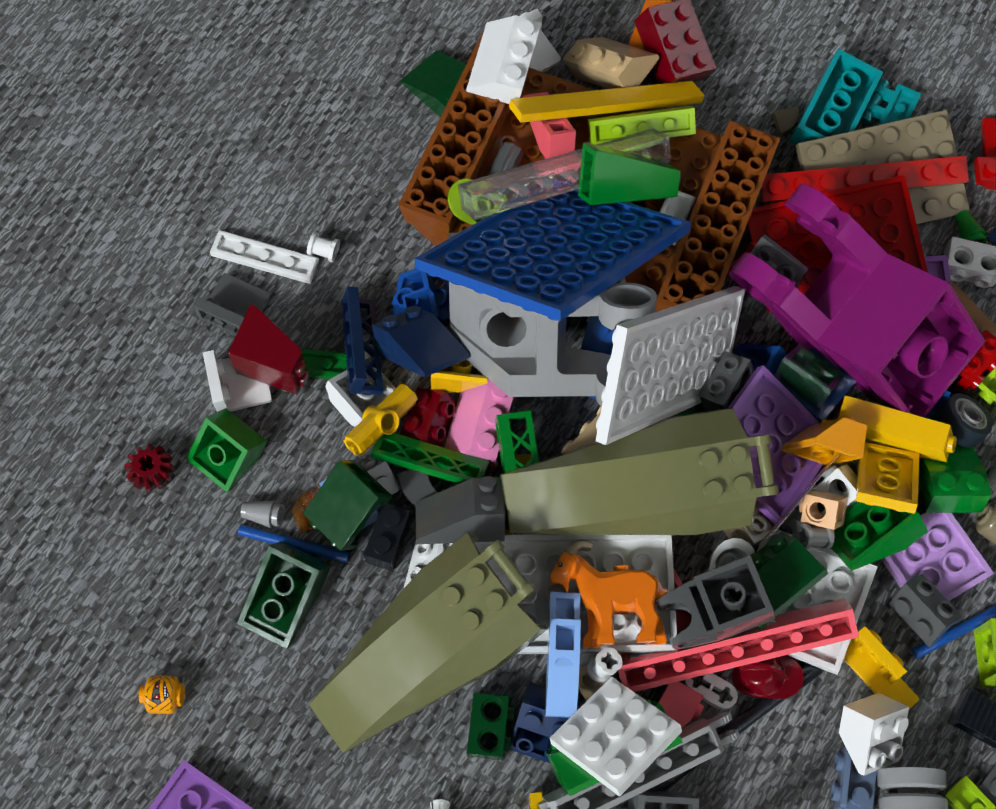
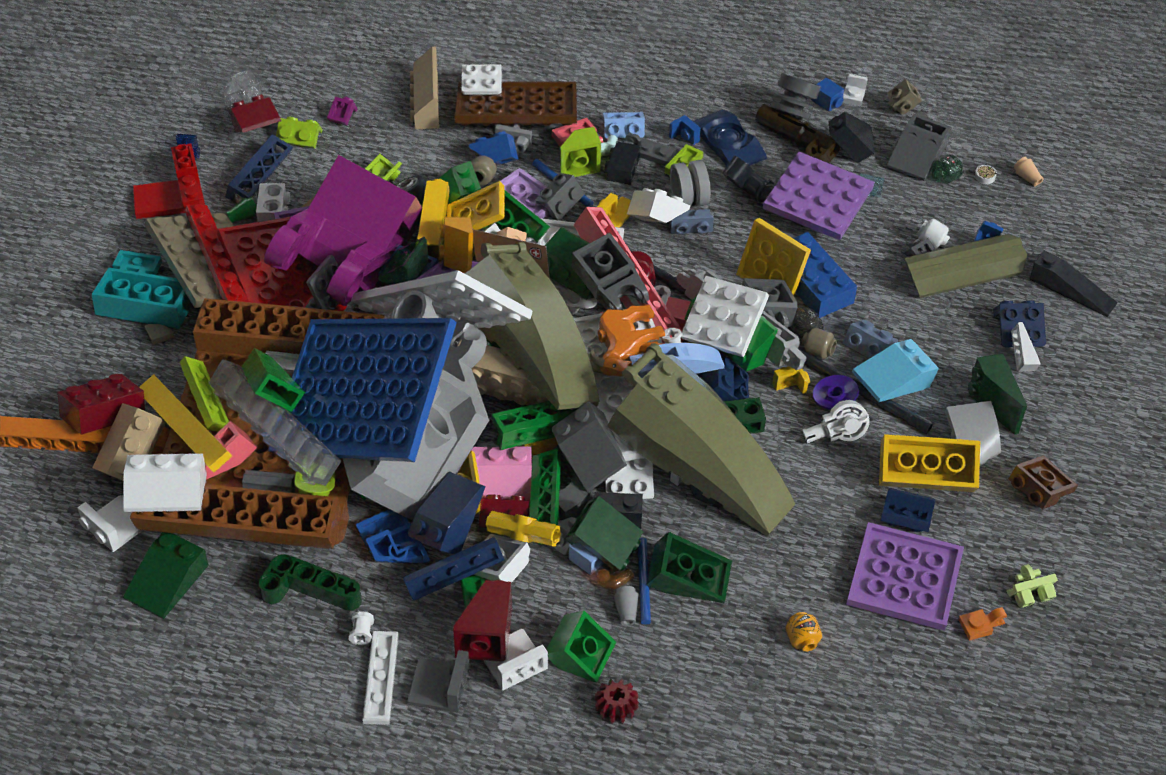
camera: 105 degrees left, 20 degrees down
(385, 212) = (342, 591): none -> dark green beam

